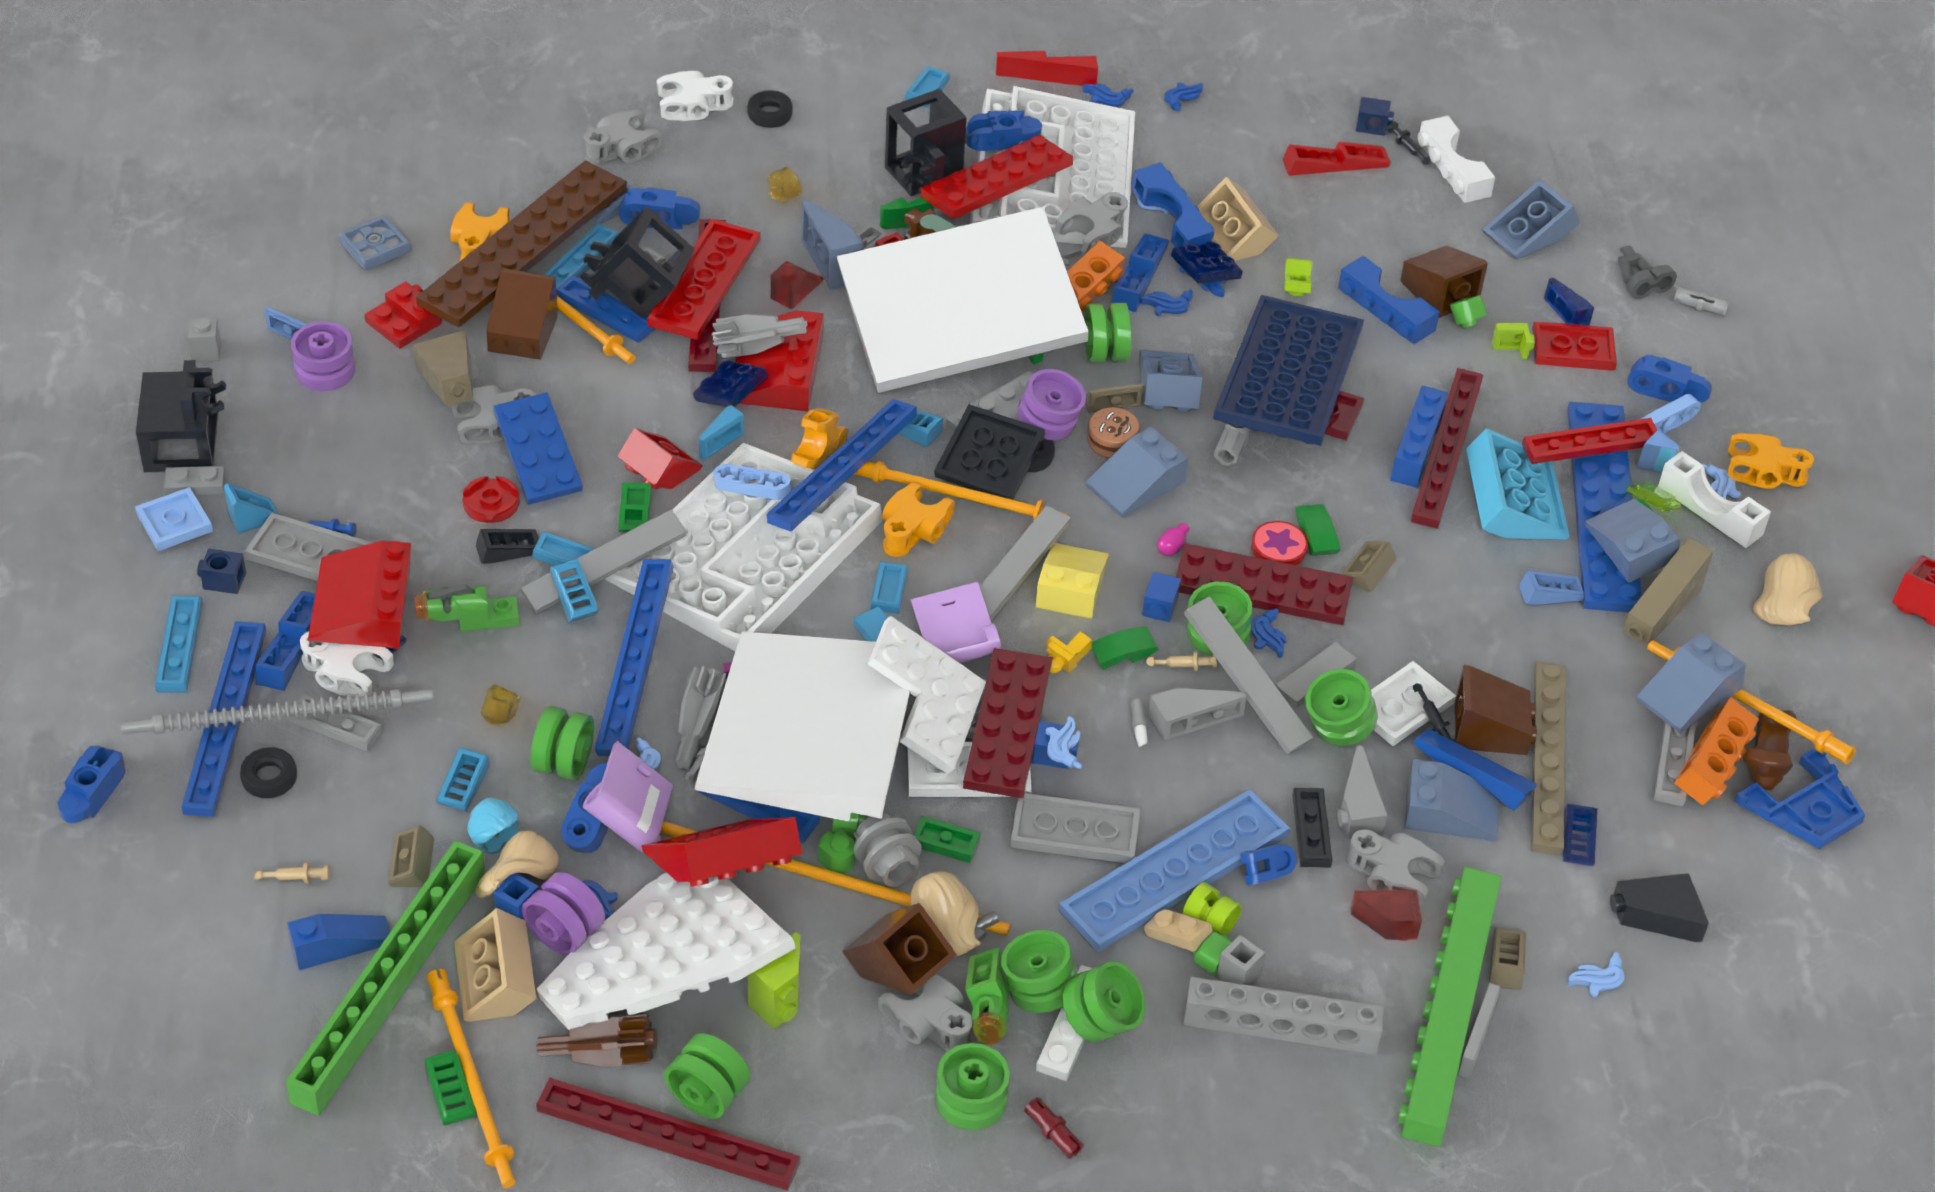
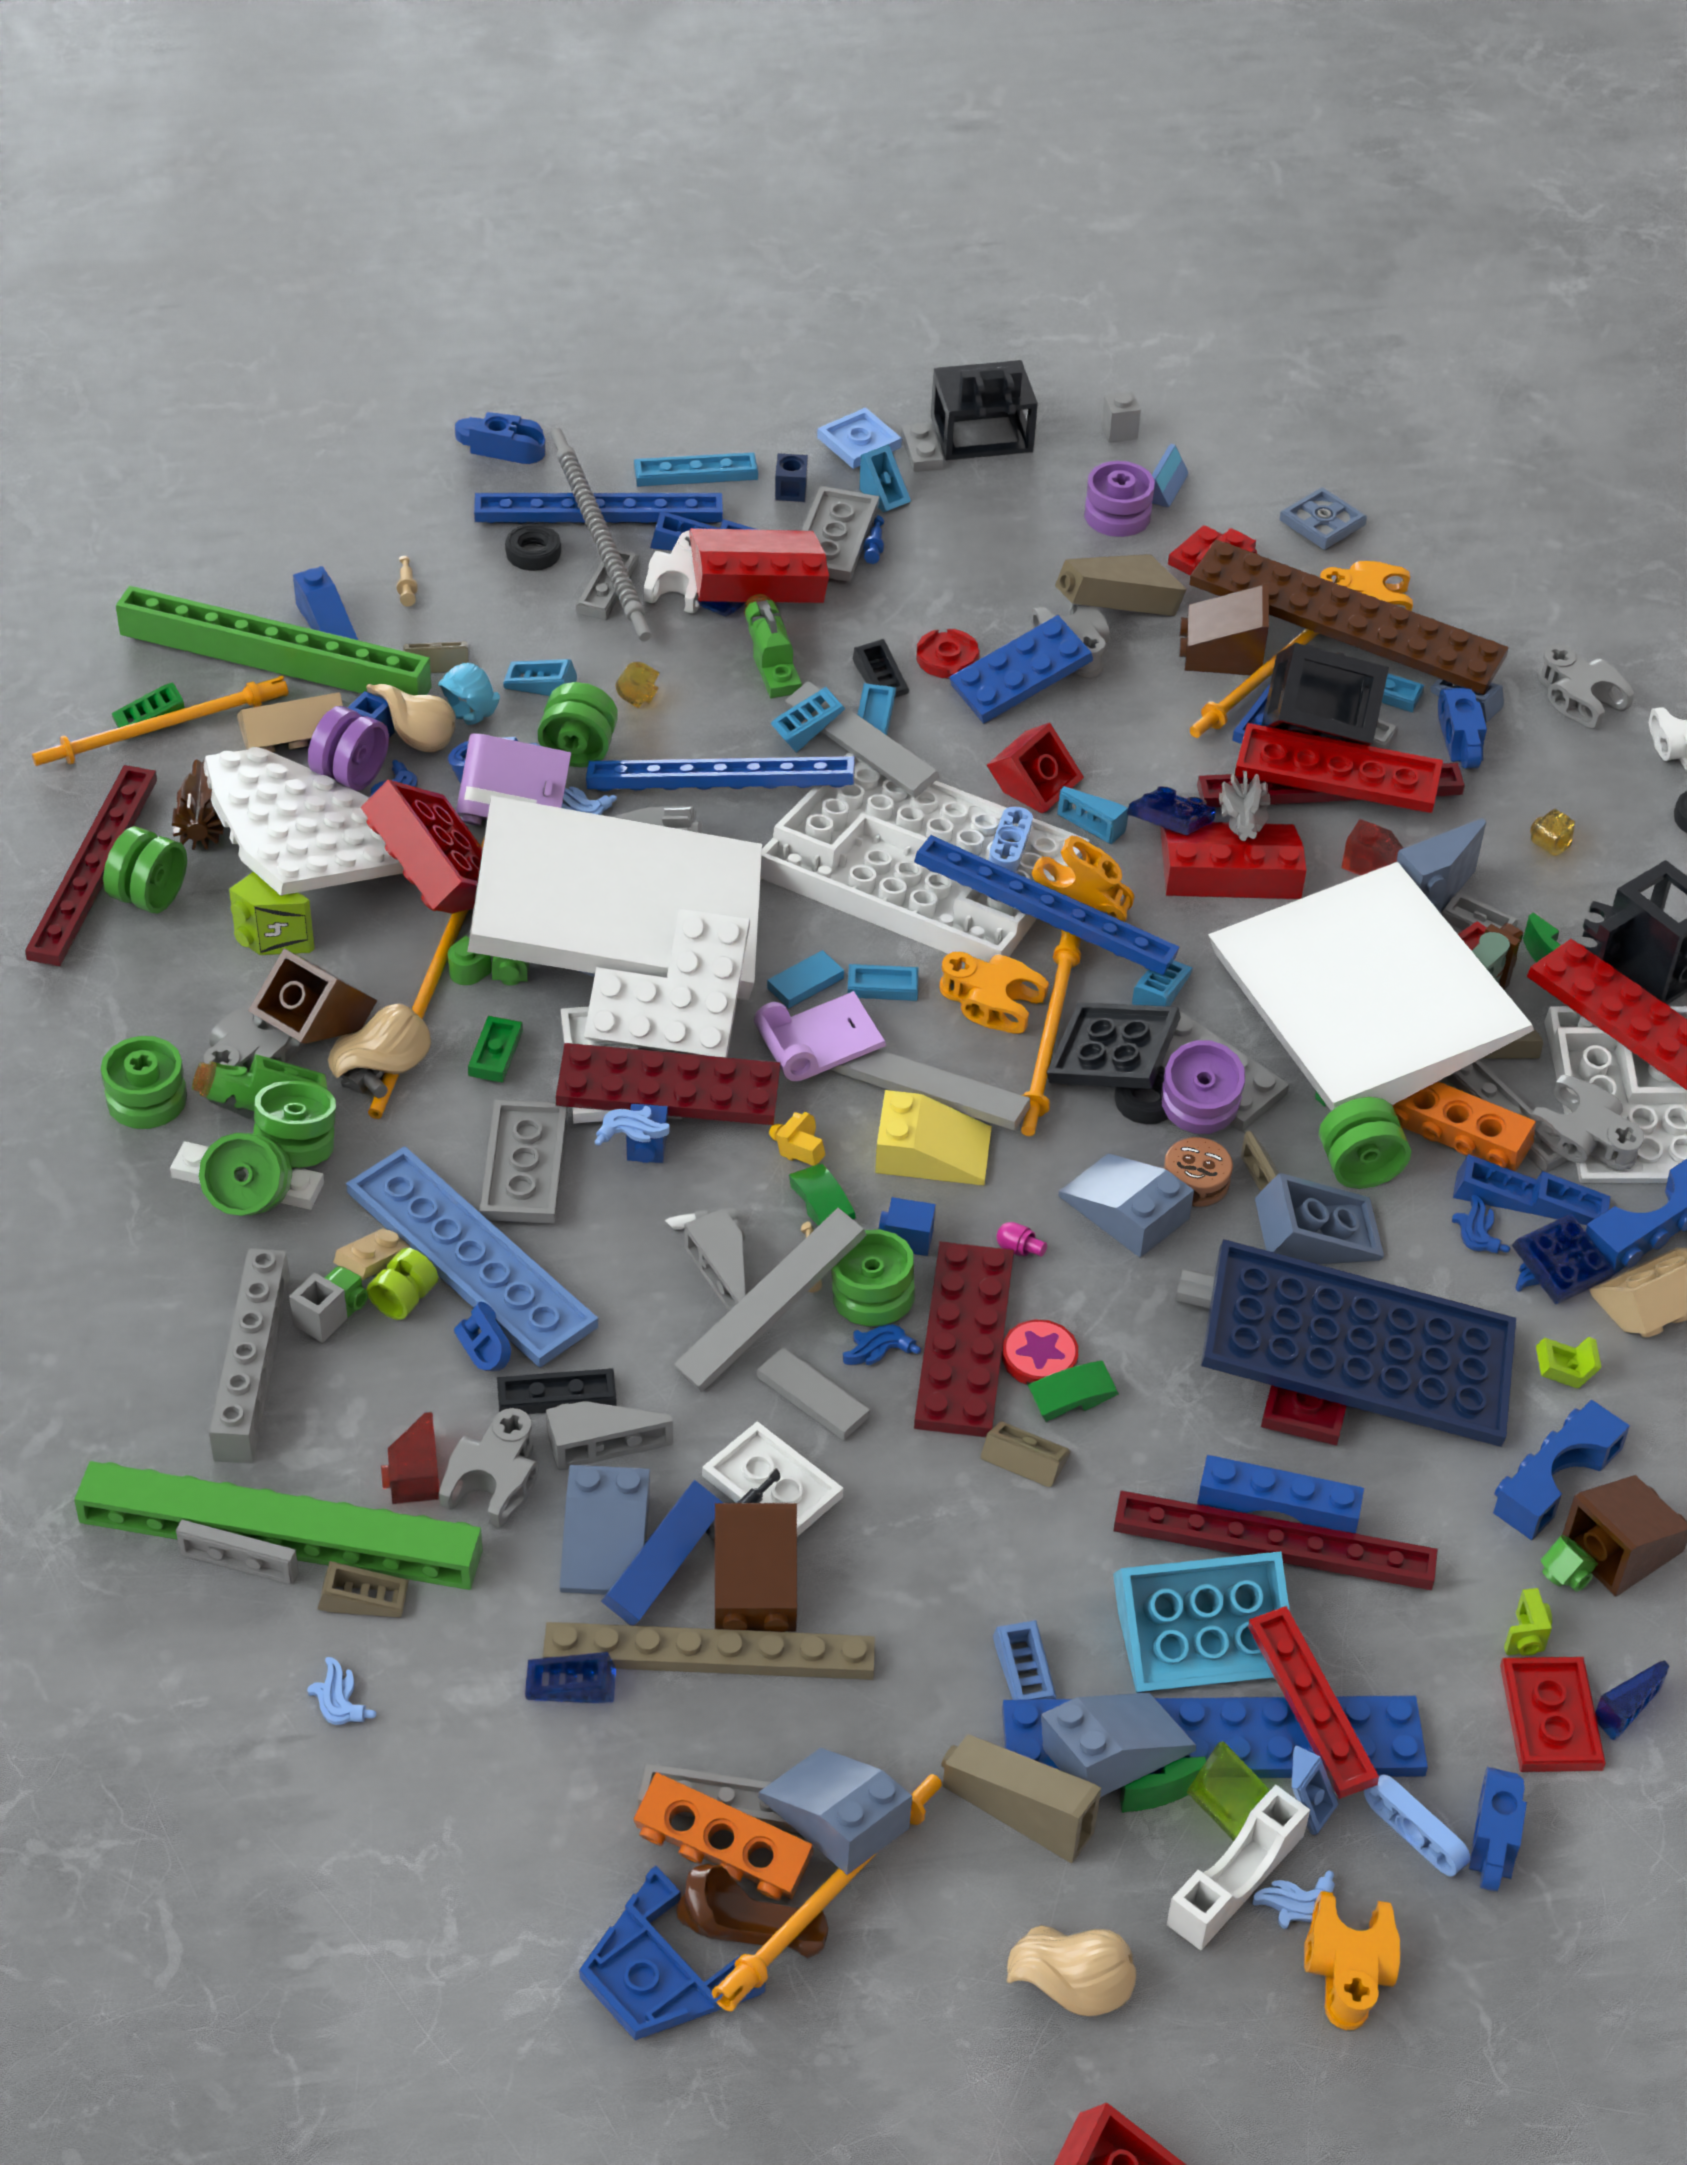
camera: 85 degrees right, 0 degrees up
(634, 505) = (959, 764): green slope -> none
(887, 850) = (454, 989): light grey piece -> none
(1054, 1127) = (98, 1159): dark red pin -> none
(1341, 707) = (733, 1398): bright green wheel -> none
(1661, 906) = (449, 1764): black slope -> none

